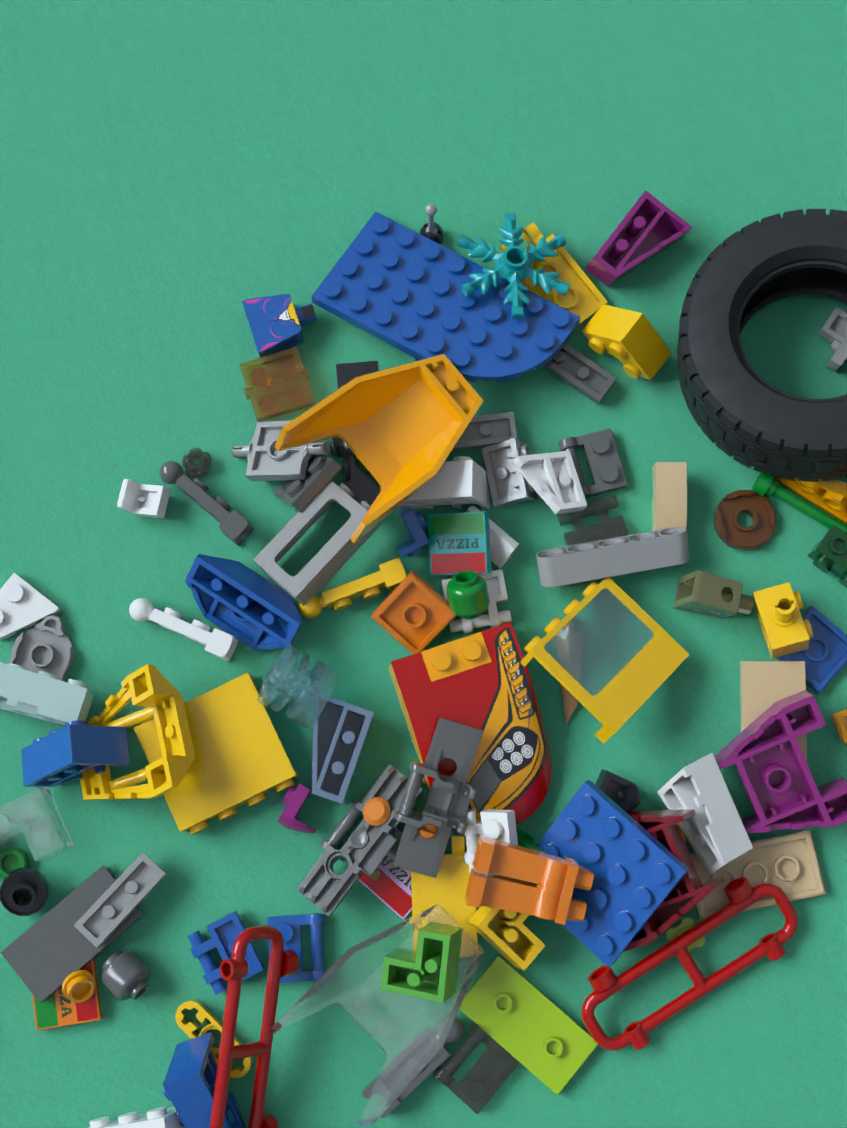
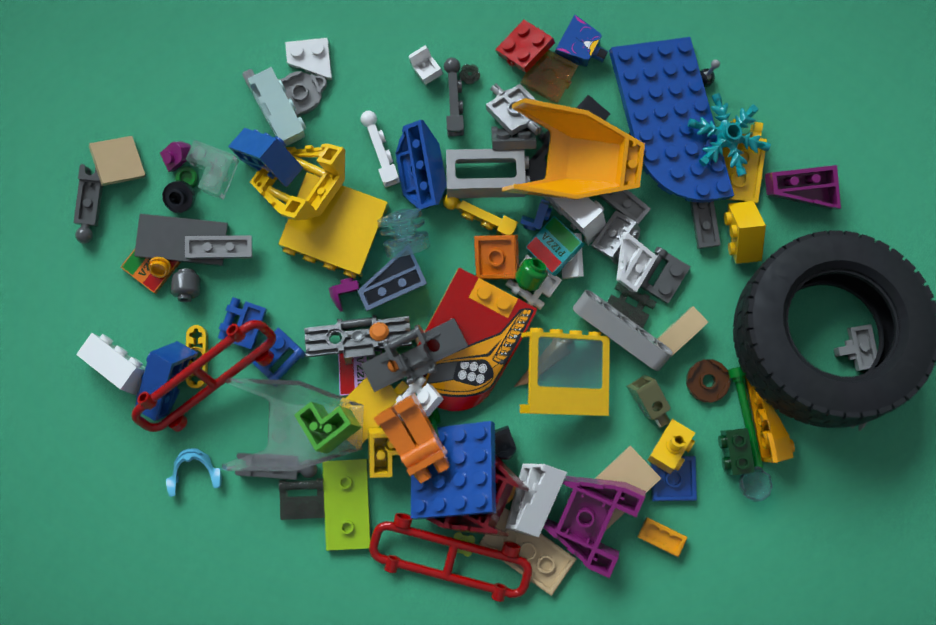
camera: 40 degrees right, 5 degrees up
(224, 380) = (525, 46): none -> red plate

